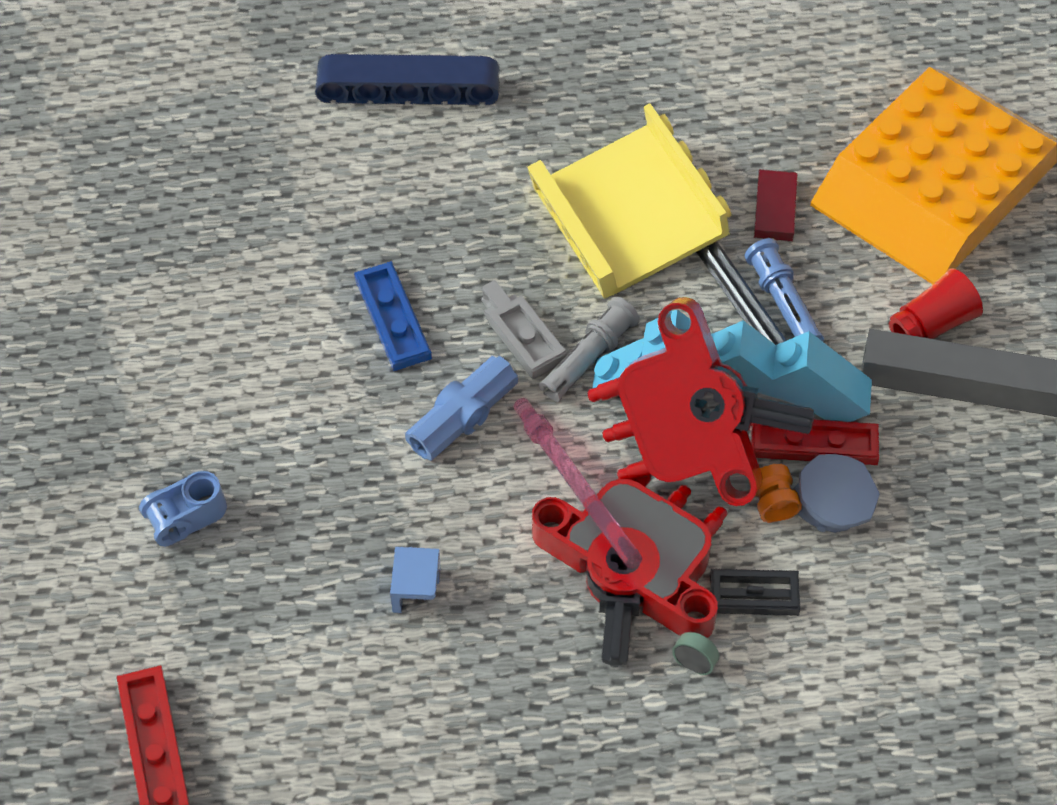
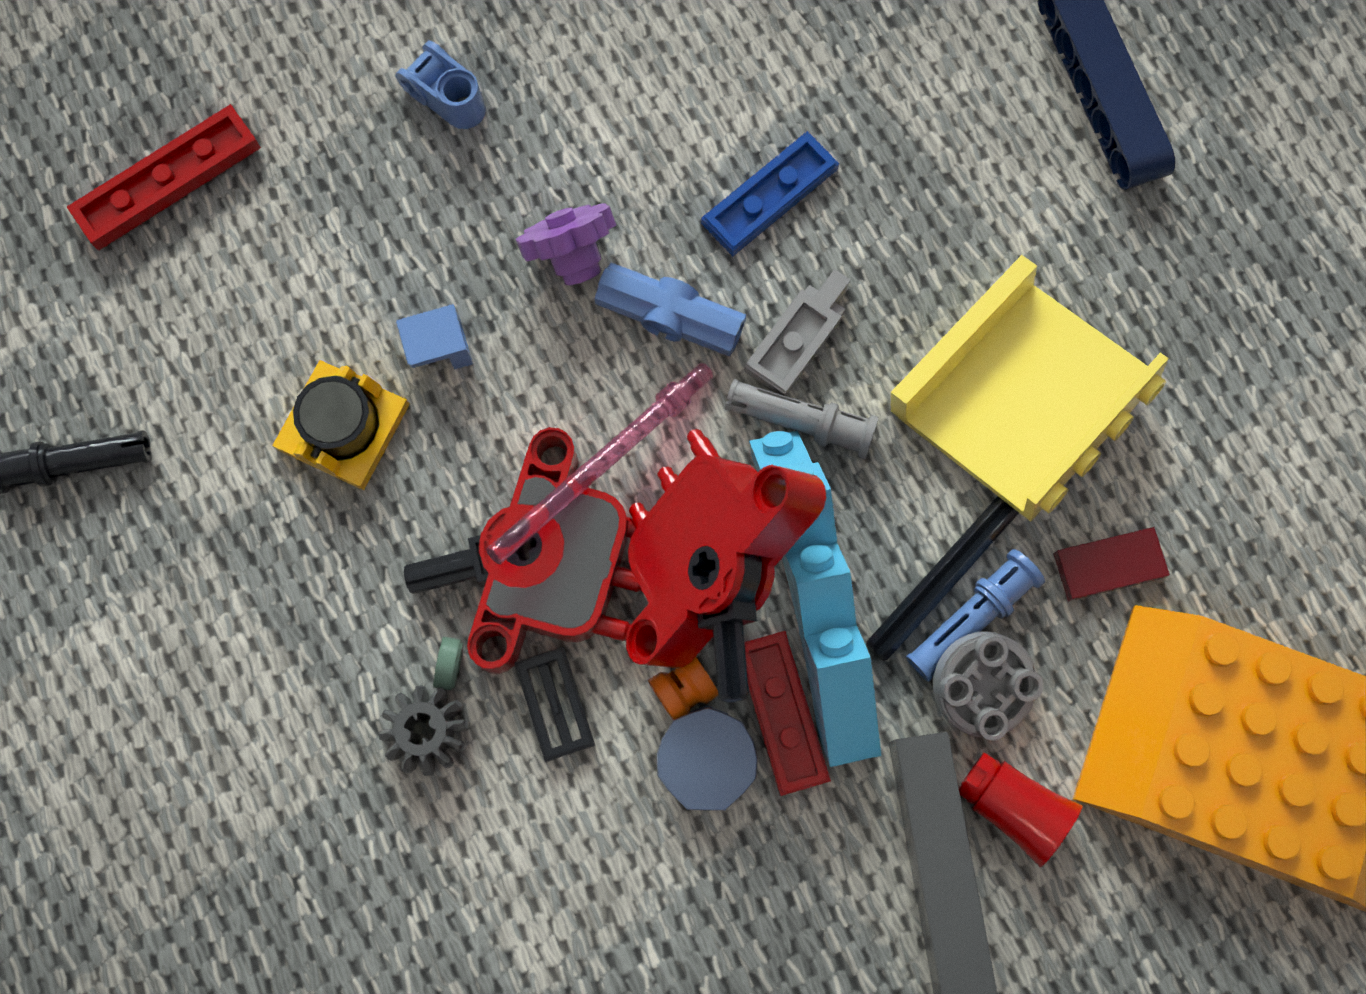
camera: 70 degrees right, 20 degrees up
(373, 451) = (569, 241): none -> medium lavender plant
(452, 677) = (338, 422): none -> piece
(755, 698) = (407, 740): none -> dark grey gear
(840, 302) = (986, 684): none -> light grey tile

